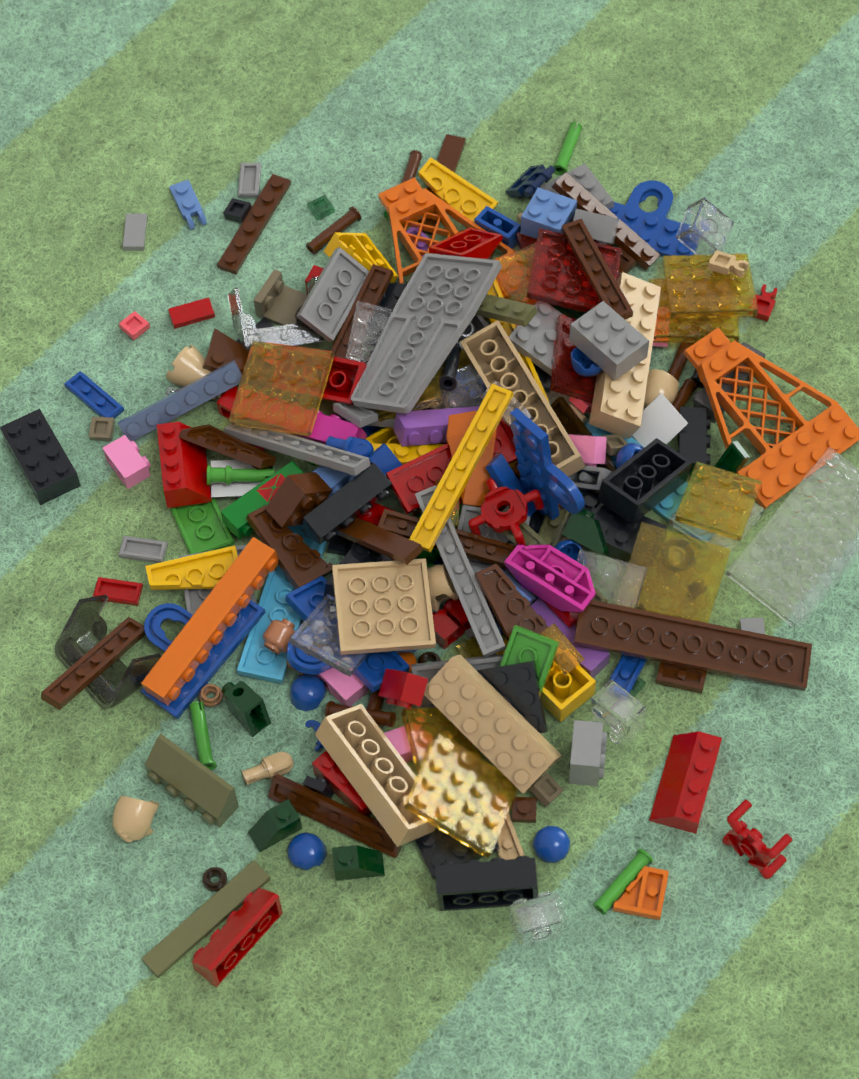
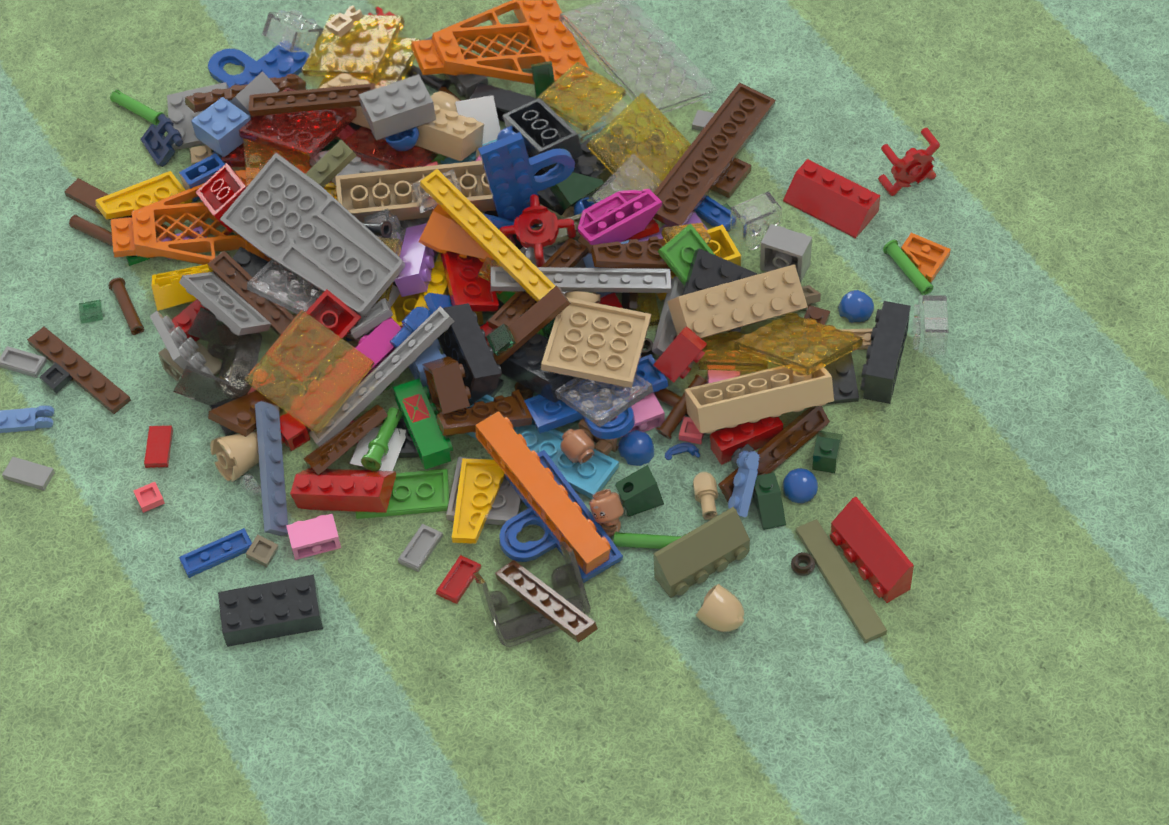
camera: 70 degrees left, 5 degrees down
(213, 681) = (606, 507): none -> nougat head
(272, 284) = (180, 348): none -> light grey plate
(279, 794) = (744, 482): none -> medium blue hinge
(363, 525) = (500, 339): none -> clear green tile

